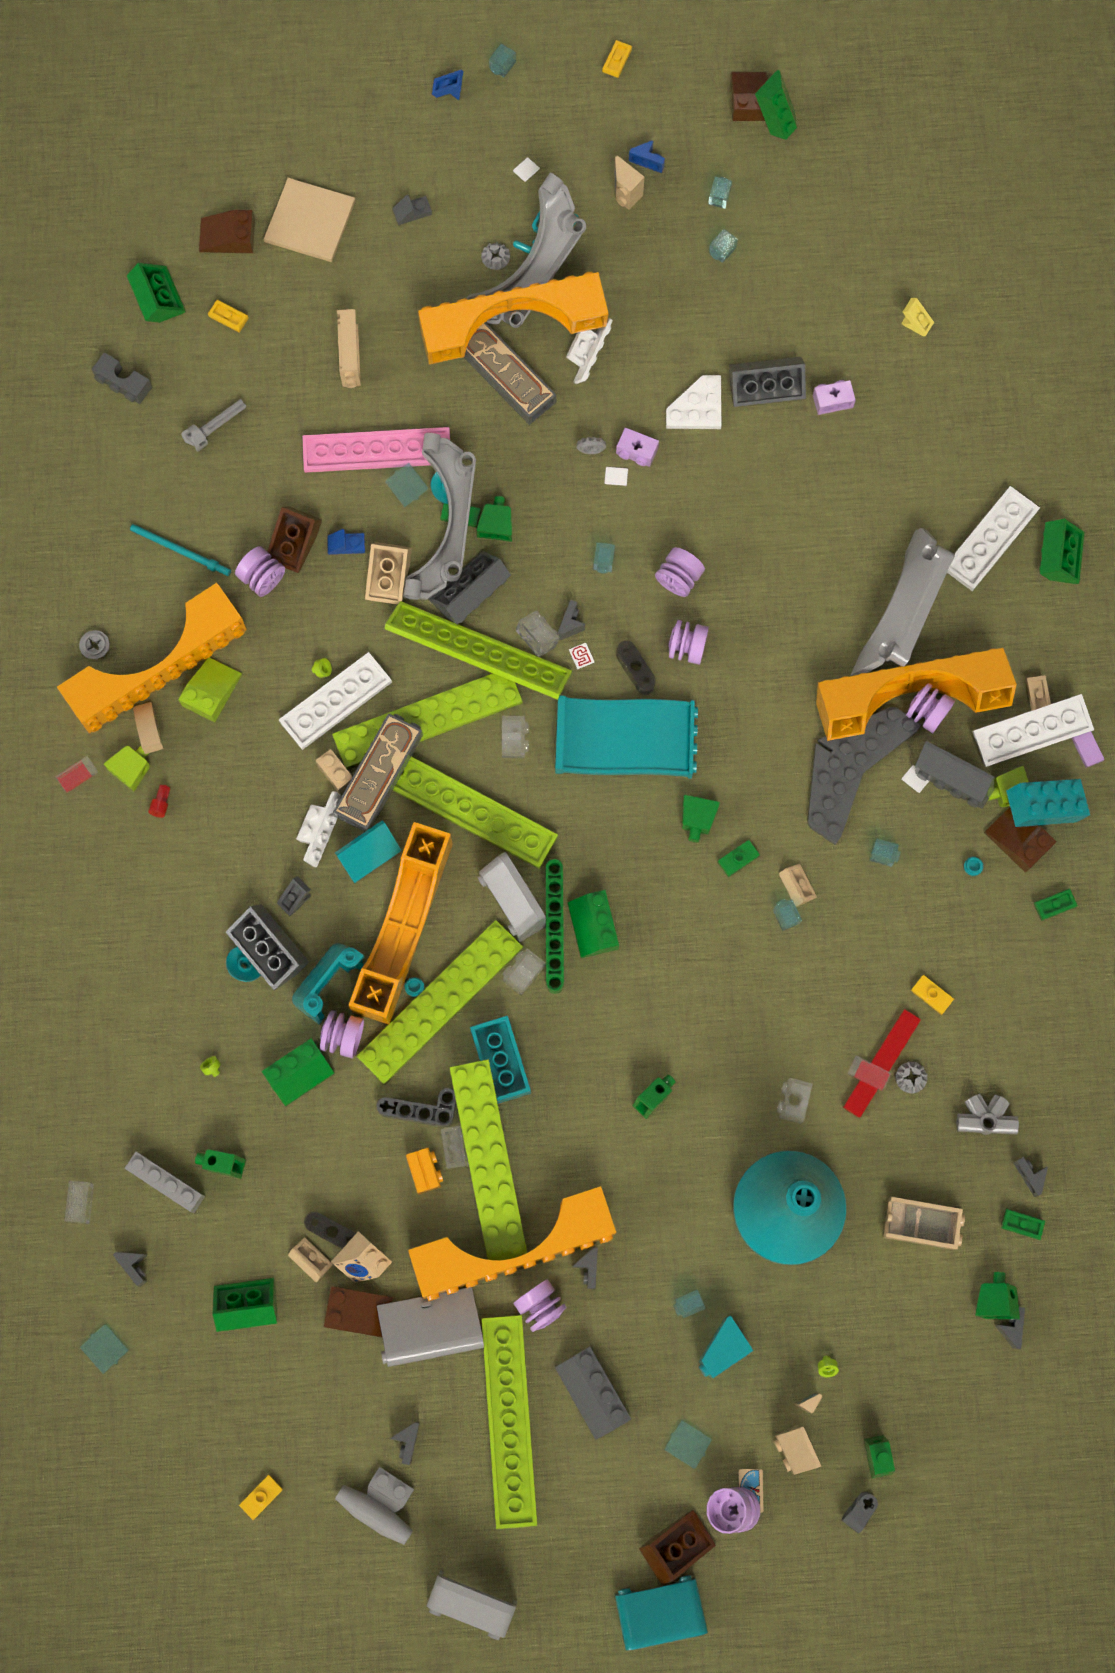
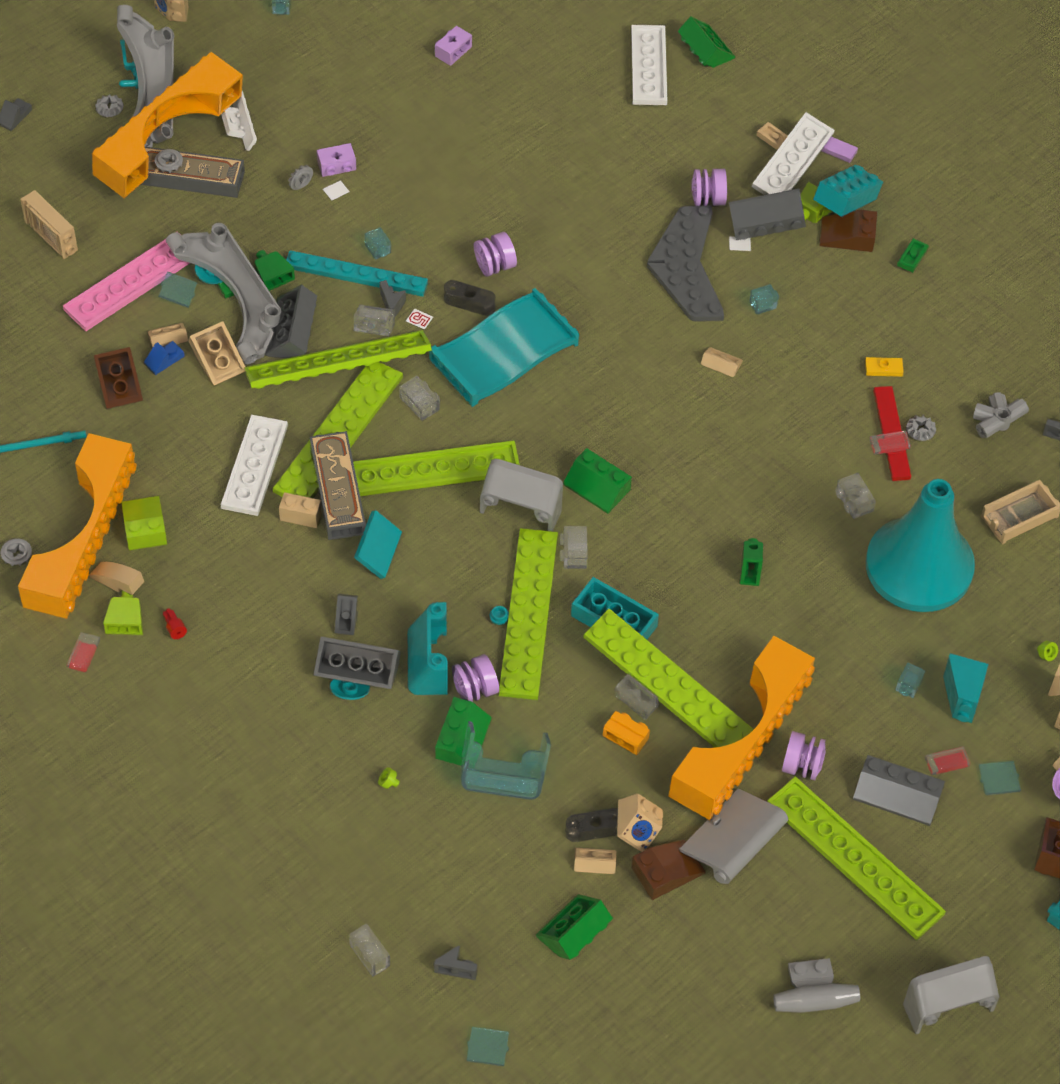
camera: 40 degrees left, 20 degrees down
(164, 1182) = (427, 885): light grey brick -> none
(221, 1163) = (462, 837): green torso -> none
(260, 571) = (117, 412): lavender wheel -> none
(261, 1497) = (716, 1057): yellow plate -> none
(297, 1133) = (503, 777): none -> clear light blue windscreen
(318, 828) = (319, 557): white bracket -> none
(322, 668) = (223, 449): lime tile -> none
(365, 523) = (168, 334): none -> tan slope
(409, 1436) = (792, 925): dark grey slope -> none
(411, 901) = (434, 533): light orange arch -> none
(416, 1108) = (561, 708): dark grey beam -> none
(495, 346) = (166, 155): none -> light grey gear
(526, 169) = (81, 40): white sticker -> none
(554, 935) = (574, 505): green beam -> none
(565, 573) = (356, 273): none -> teal plate
(590, 1262) = (813, 706): dark grey slope -> none
(658, 1396) = (947, 760): none -> clear tile
(679, 572) = (445, 214): lavender wheel -> none
(698, 406) = (357, 110): white plate -> none
(698, 816) = (607, 361): green torso -> none
(738, 858) = (662, 372): green plate -> none
(767, 381) = (395, 63): dark grey slope -> none
(787, 914) = (733, 382): clear light blue brick -> none
(909, 606) = (637, 131): light grey panel -> none
(973, 866) = (833, 268): teal plate -> none
(976, 679) = (649, 217): light orange arch -> none

